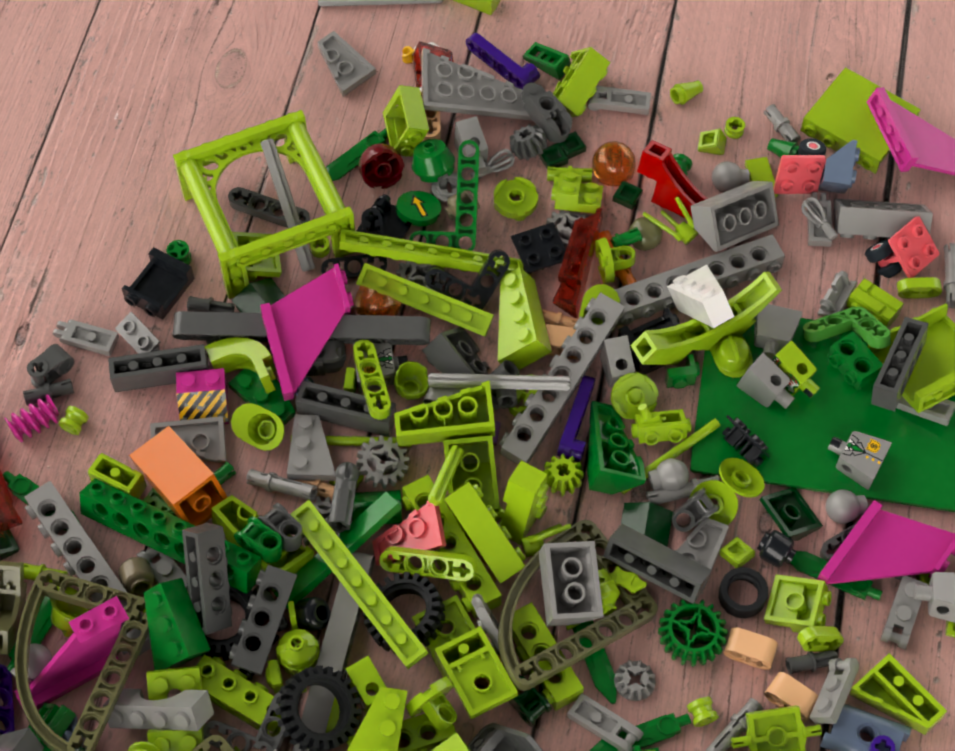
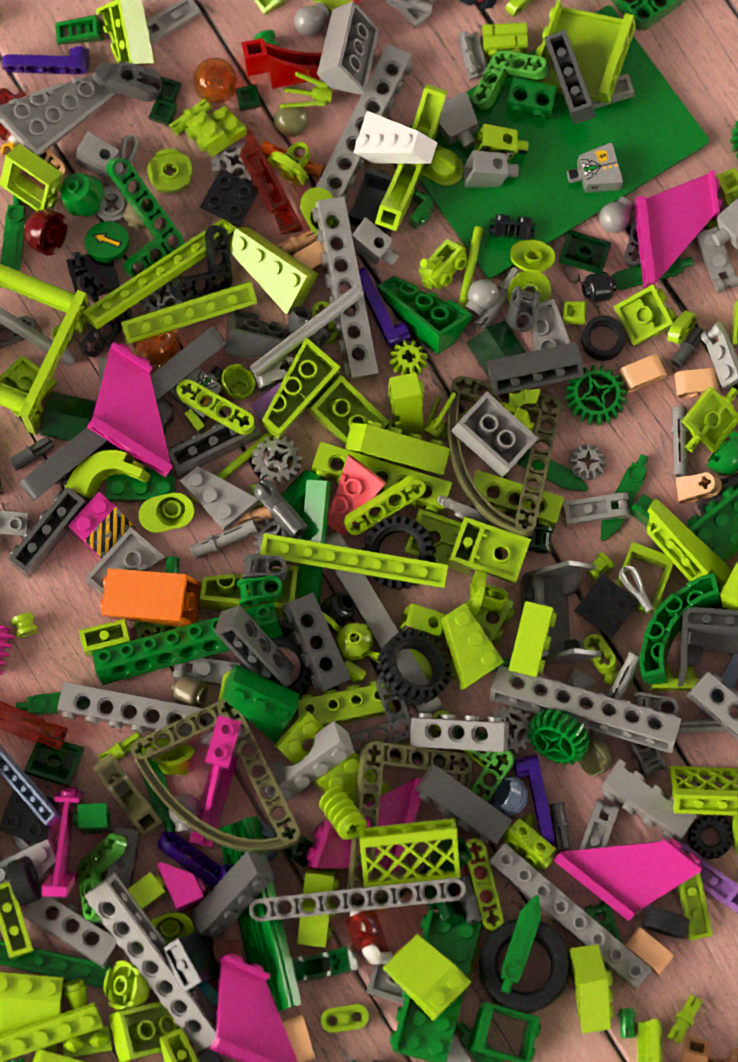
camera: 45 degrees left, 15 degrees up
(445, 475) = (340, 432): lime axle -> none
(528, 142) = (137, 116): dark grey gear -> none
(627, 238) = (287, 137): green pin -> none
(631, 392) = (404, 257): lime tile -> none
(702, 711) = (650, 444): lime wheel -> none

